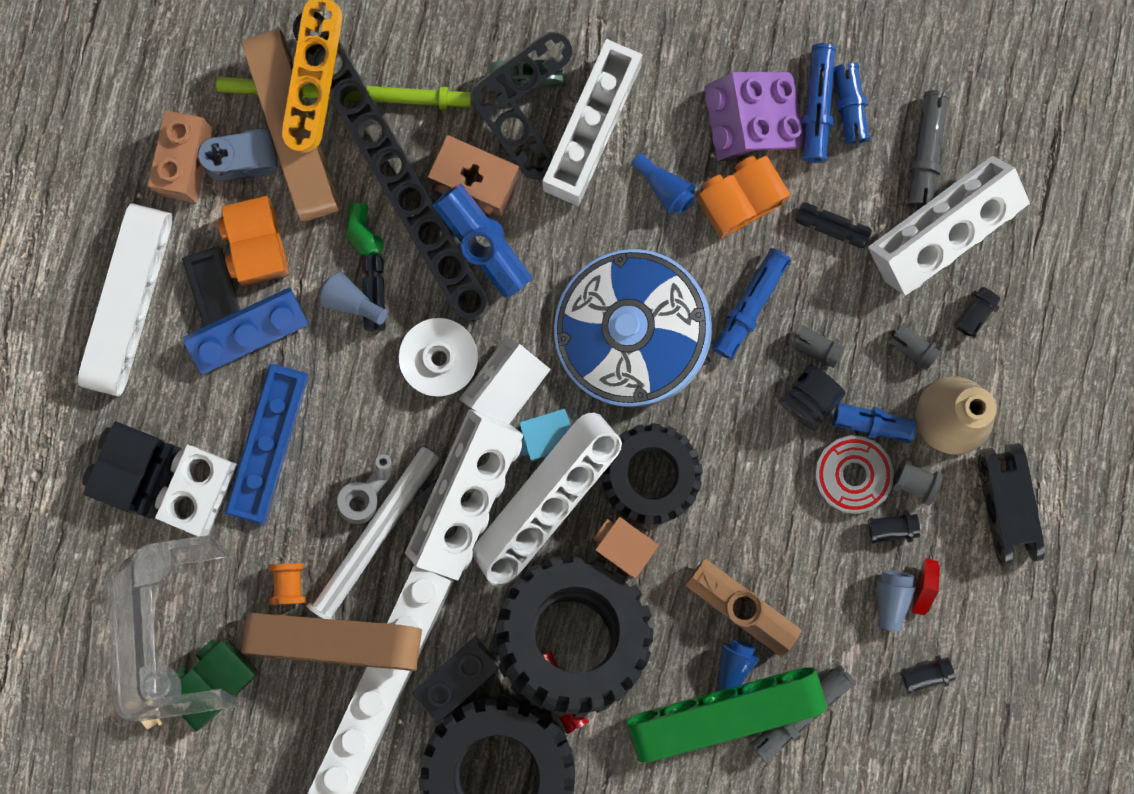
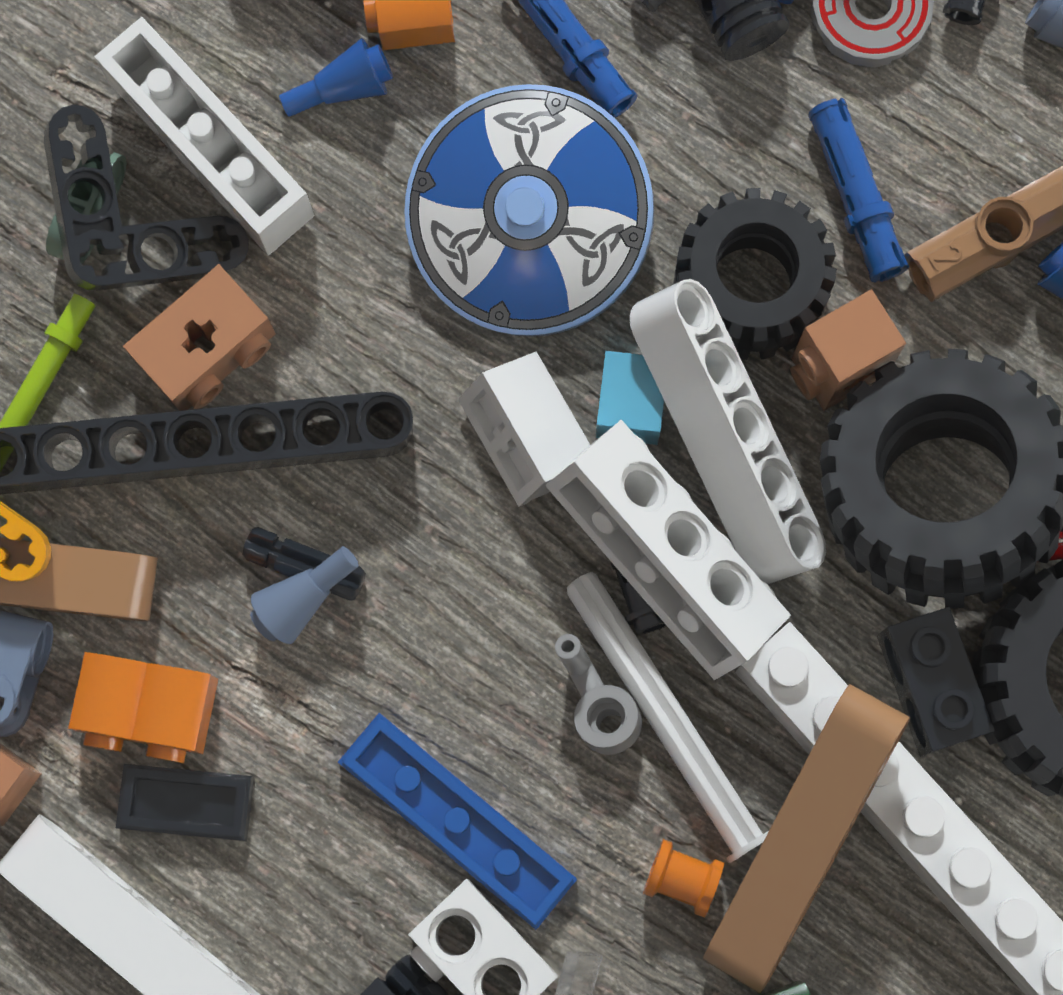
camera: 65 degrees left, 5 degrees down
(245, 330) = (272, 776): blue plate -> none
(358, 234) = (205, 547): green arm -> none
(424, 342) = (437, 475): white dish -> none
(468, 221) = (266, 368): blue piece -> none
(733, 514) = (866, 211): none -> blue pin

